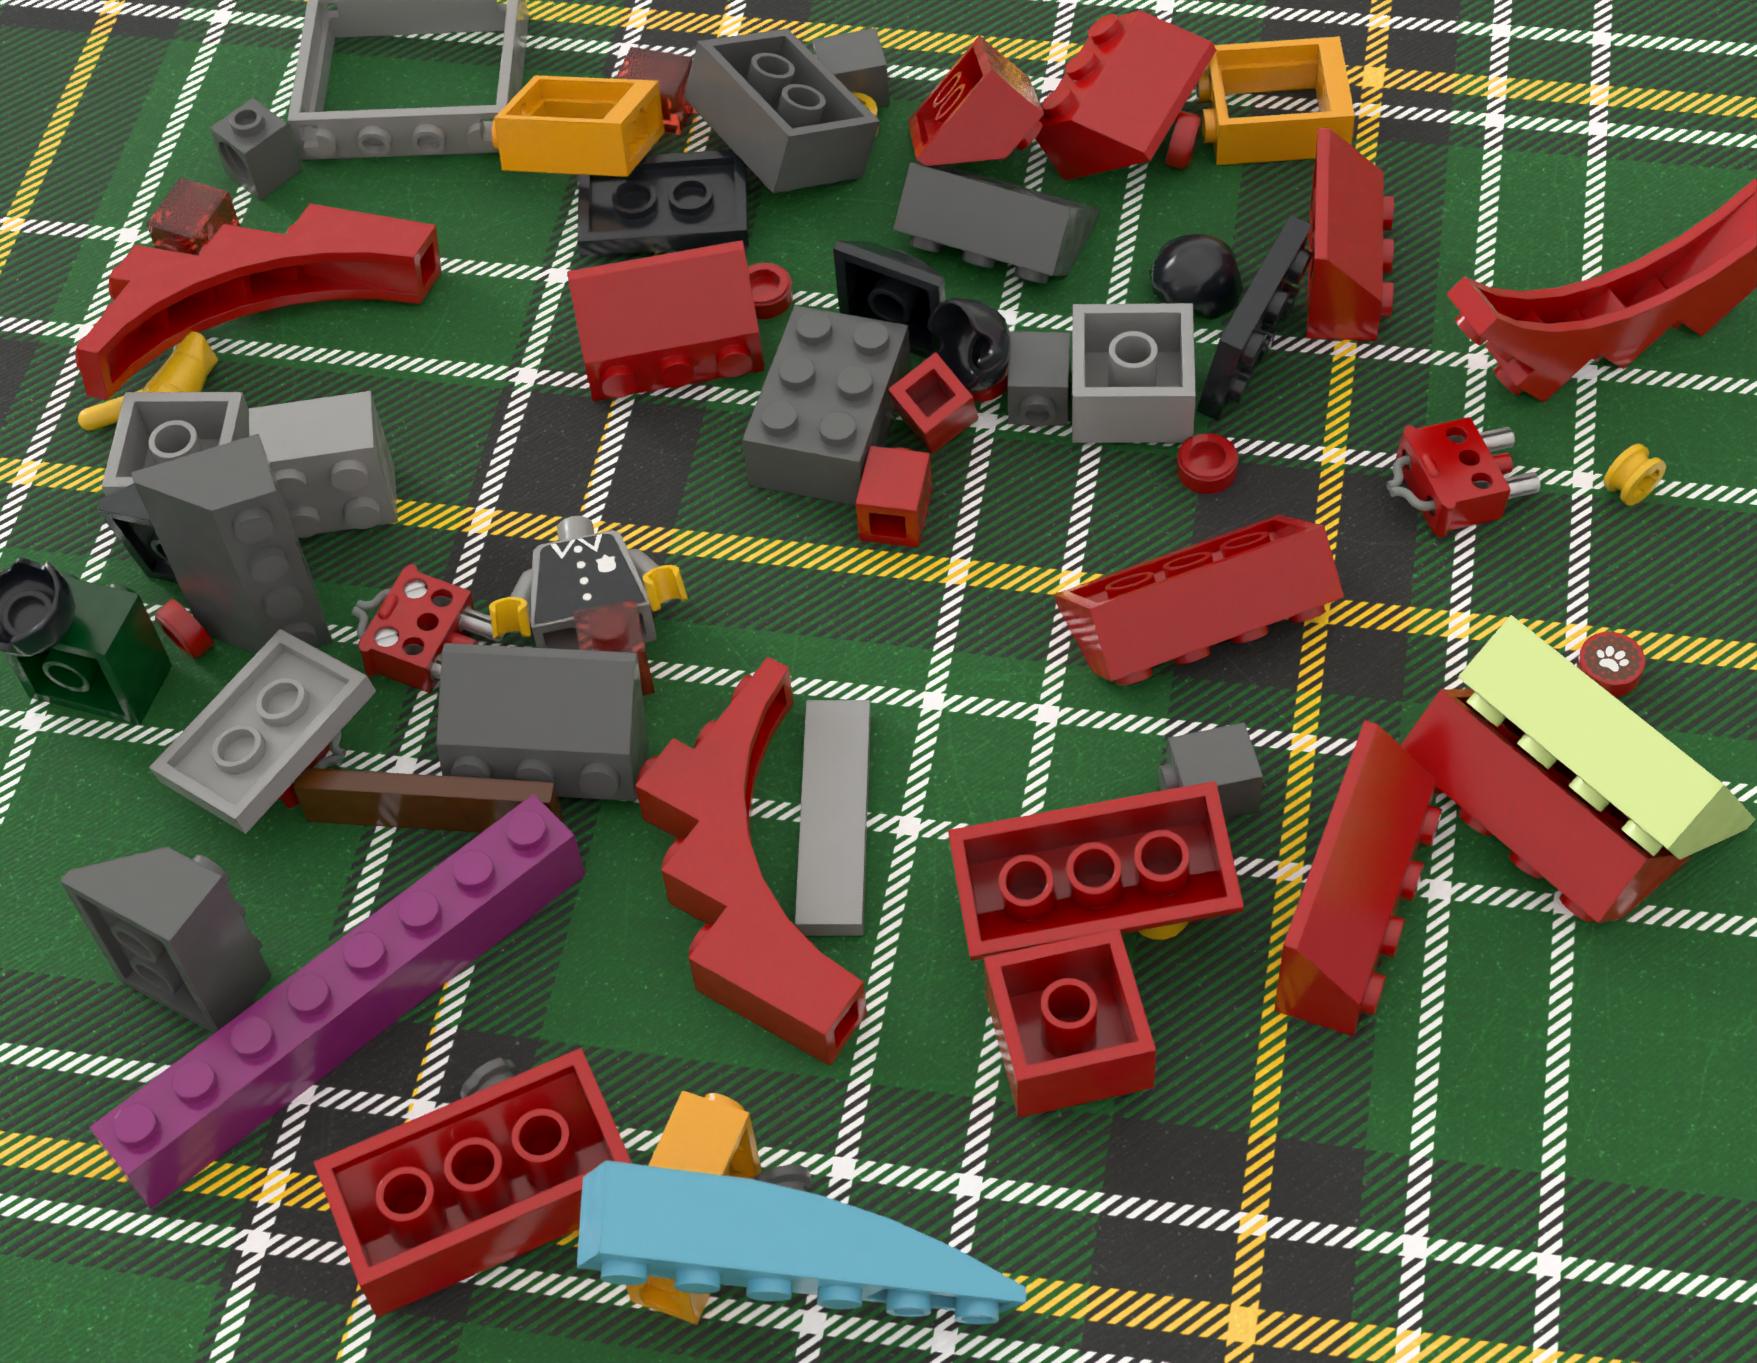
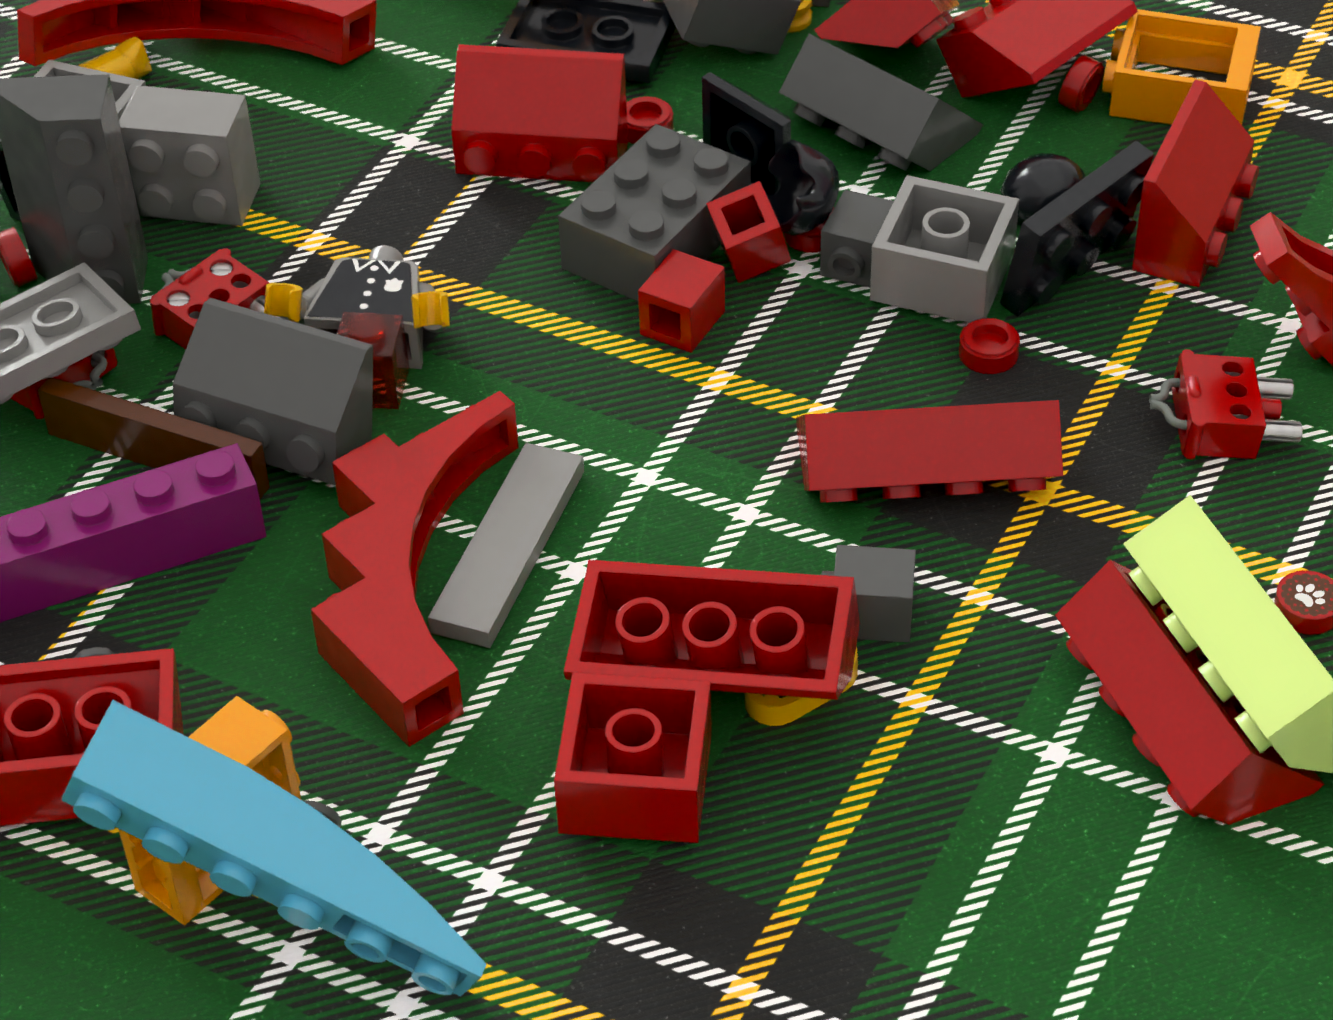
camera: 15 degrees right, 10 degrees down
(1357, 885) = (961, 711): red slope -> none

